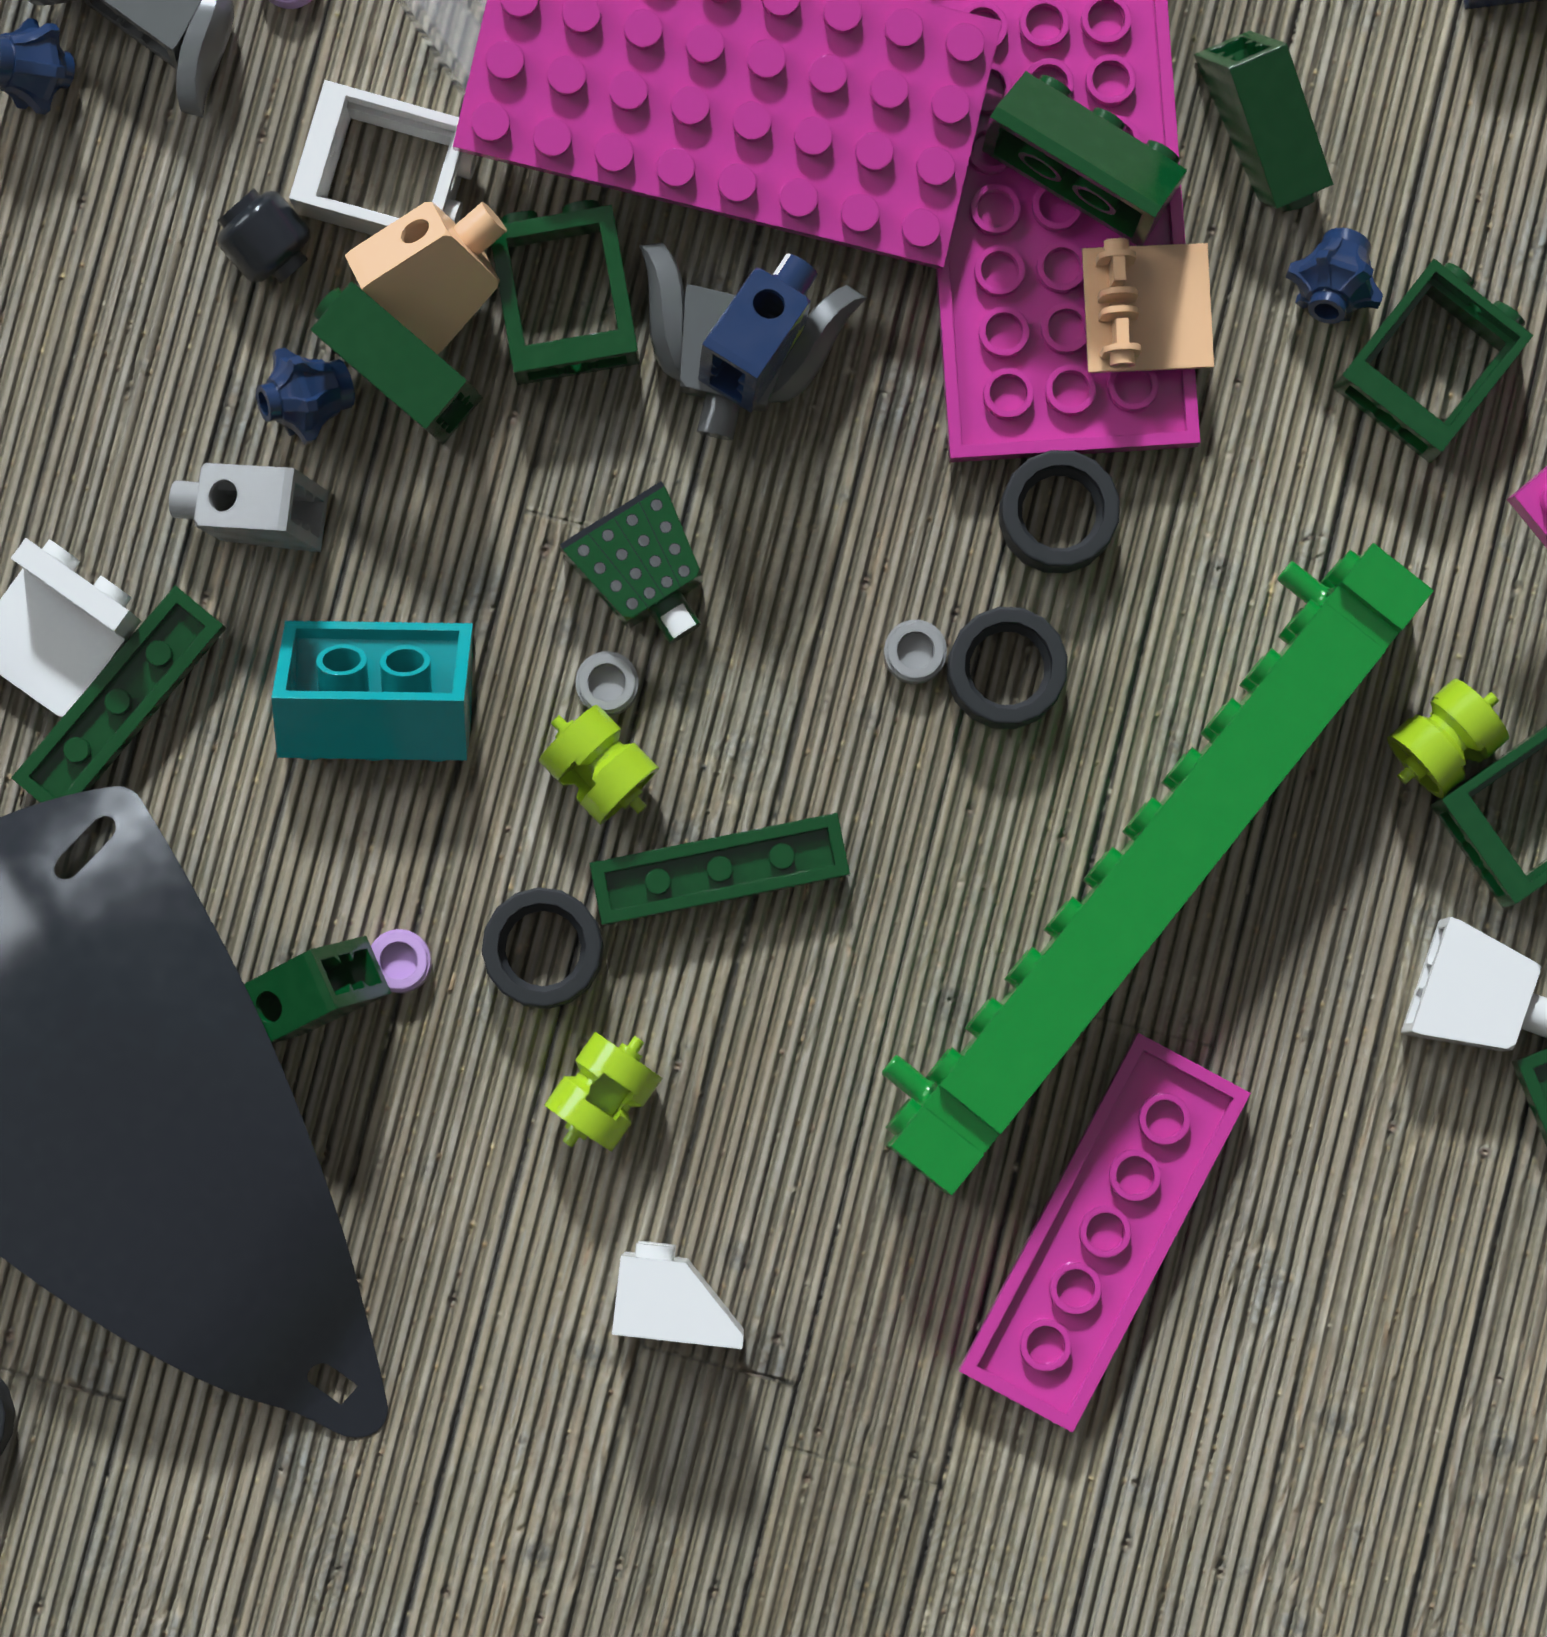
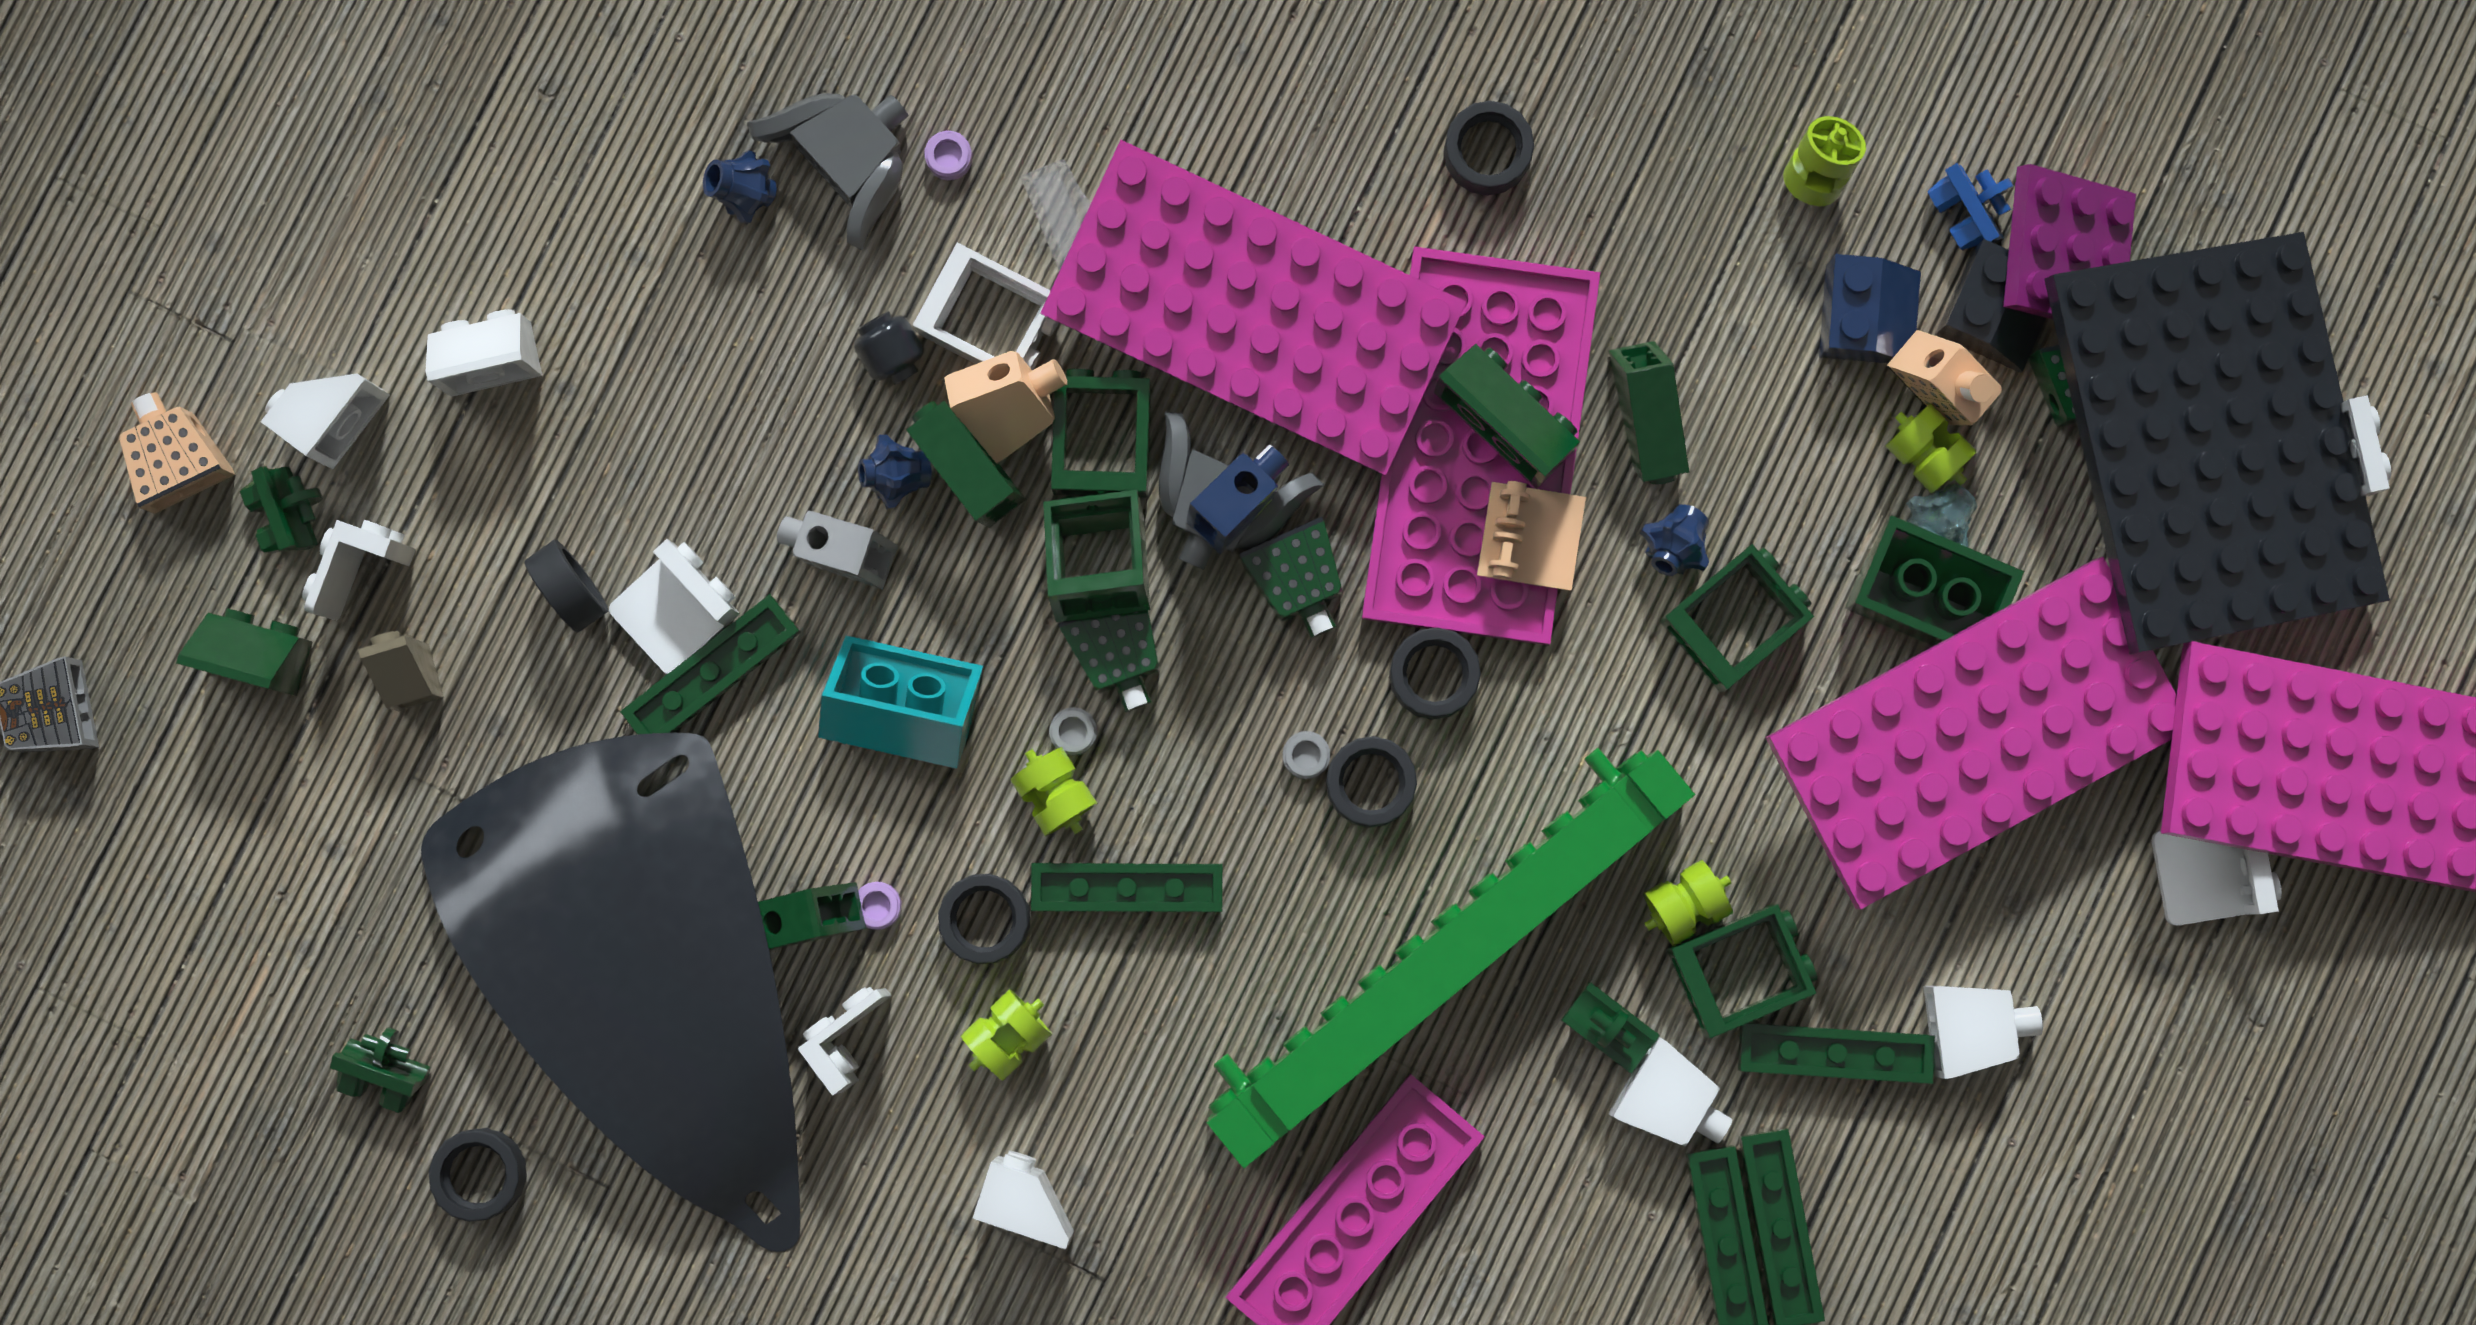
camera: 20 degrees right, 0 degrees up
(387, 1174) = (832, 1063): none -> white bracket
(605, 491) = (1103, 592): none -> dark green window
(855, 421) = (1297, 575): none -> dark green torso
(1382, 918) = (1610, 1027): none -> dark green hips

